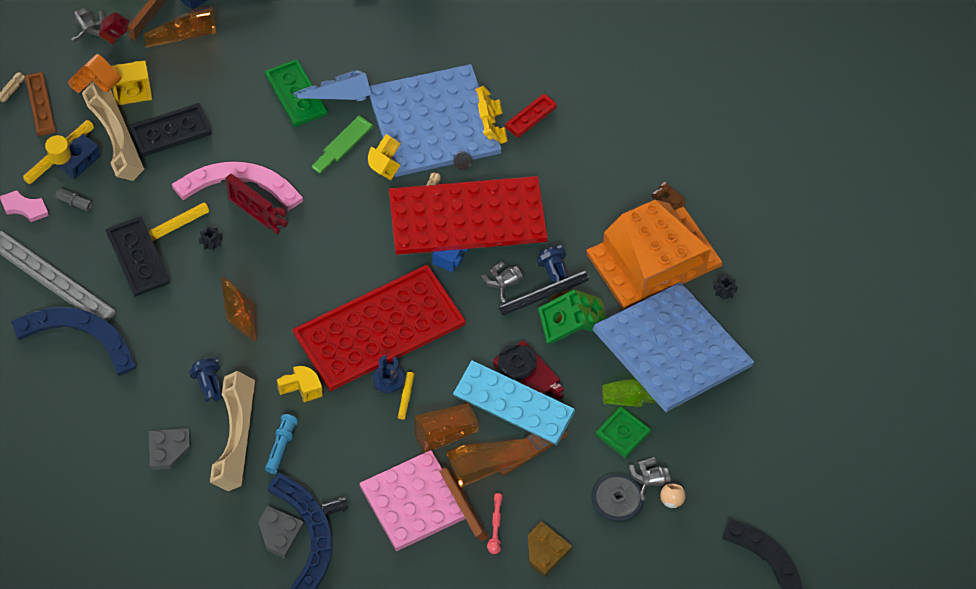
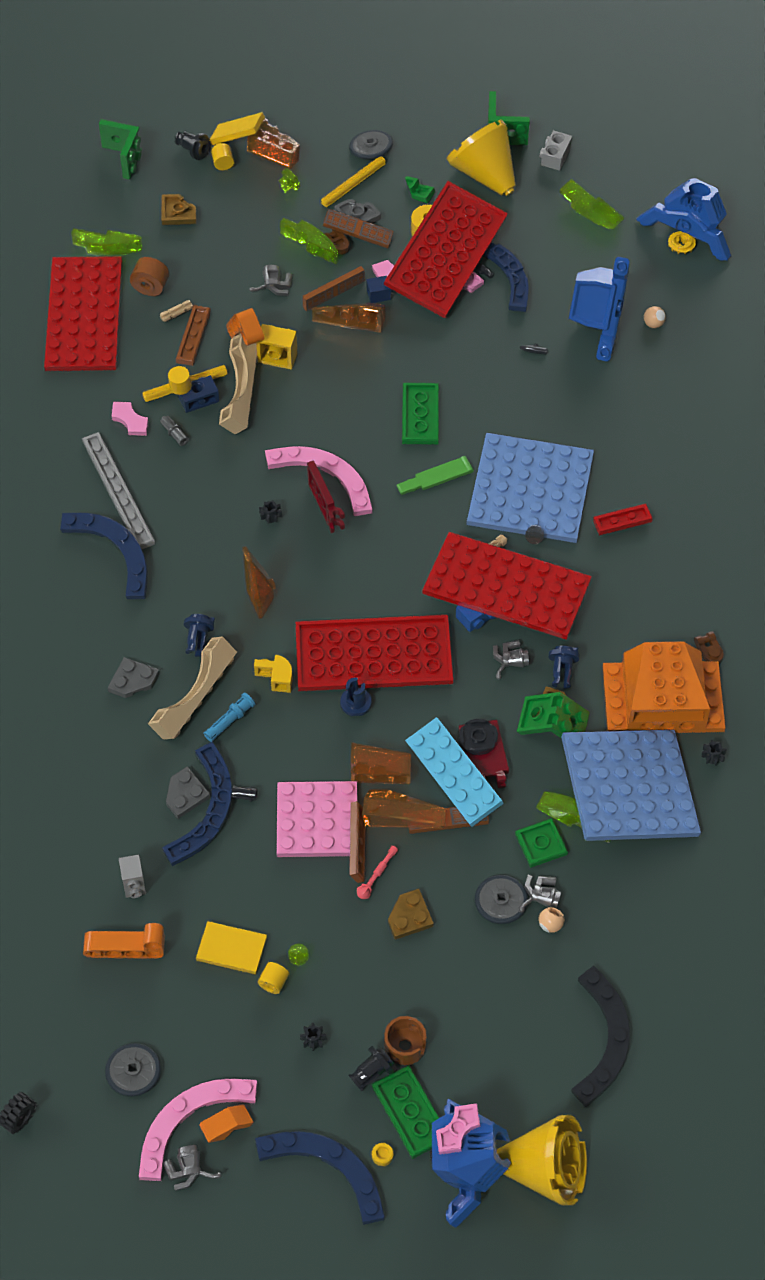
camera: 30 degrees right, 0 degrees up
(113, 27) = (290, 292): dark red window -> none
(137, 256) = (198, 501): black plate -> none
(170, 130) = (290, 402): black plate -> none
(178, 221) = (237, 487): yellow axle -> none
(347, 86) = (468, 426): medium blue wedge -> none
(381, 158) = (460, 503): yellow brick -> none
(406, 395) = (363, 723): yellow piece -> none
(488, 110) = (580, 496): yellow piece -> none
(544, 293) = (538, 685): black axle -> none

